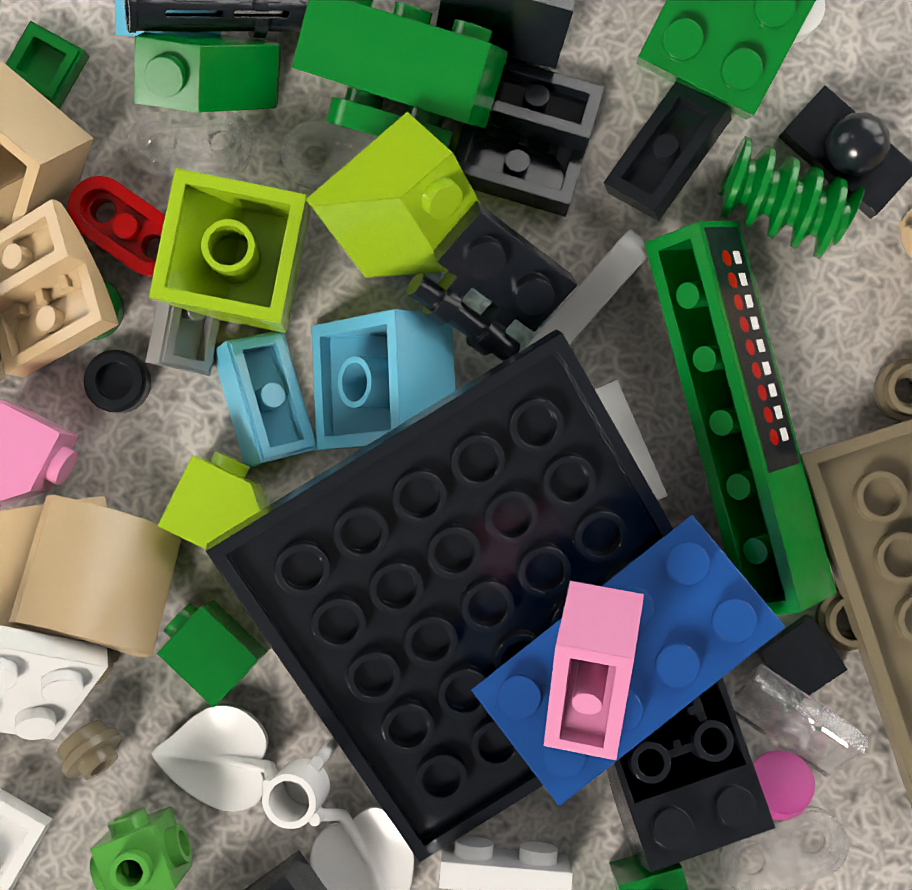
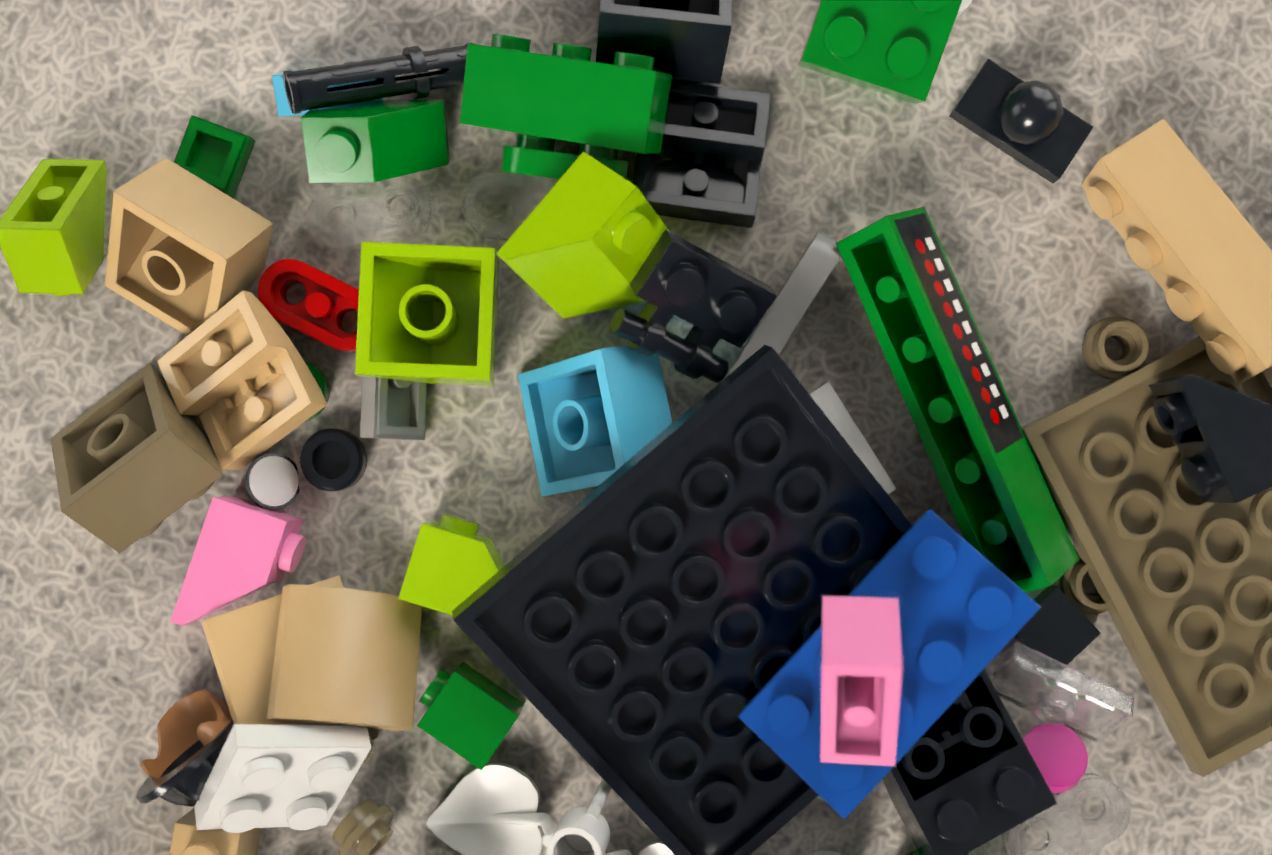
camera: 10 degrees left, 0 degrees up
(54, 393) = (273, 481): none -> white sticker
(264, 398) = (482, 454): medium azure slope -> none
(667, 150) = (843, 147): black plate -> none
(786, 199) = (970, 175): green piece -> none

